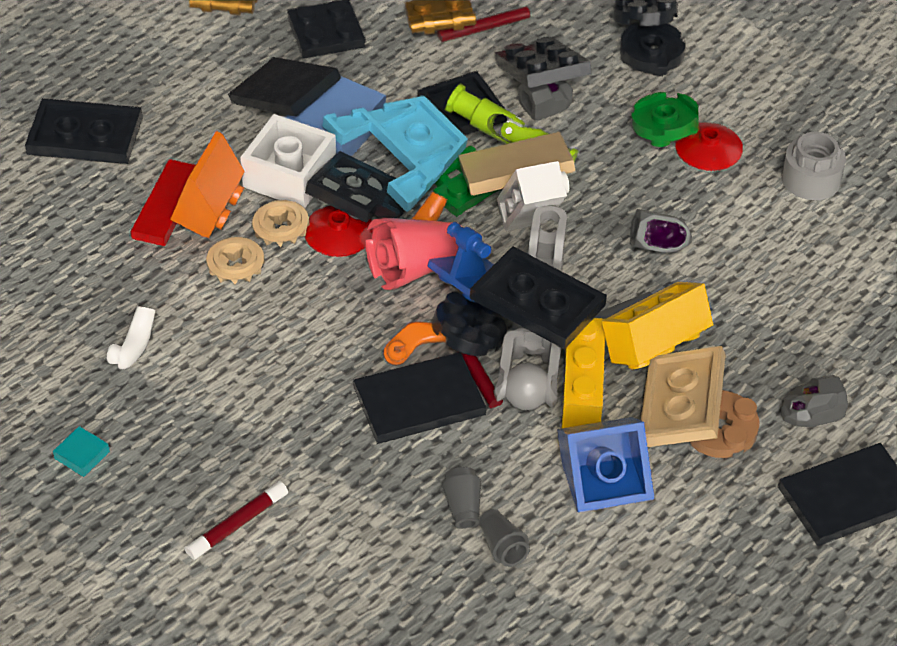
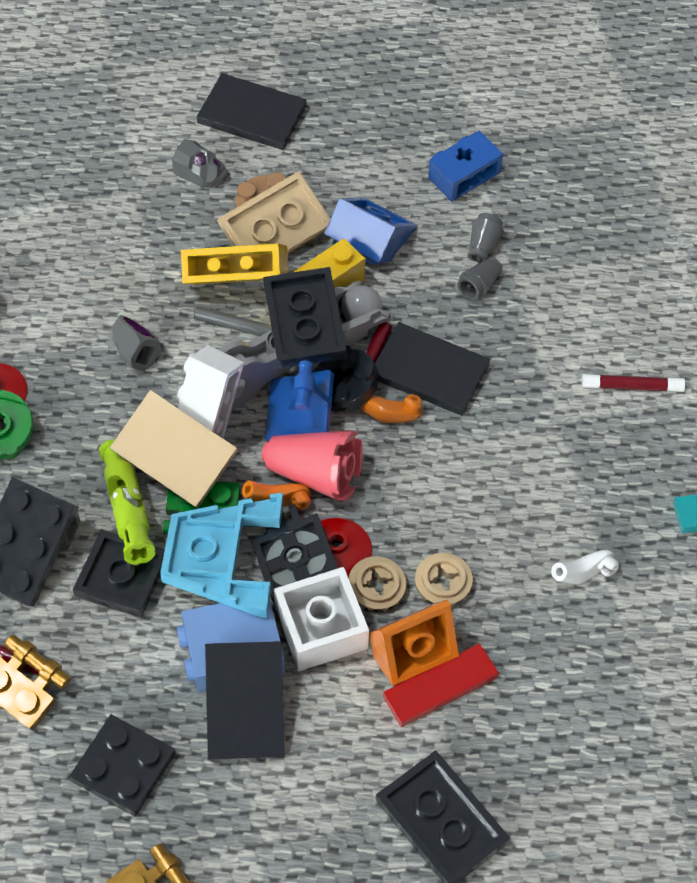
camera: 135 degrees left, 10 degrees up
(600, 589) = (465, 165): none -> blue brick

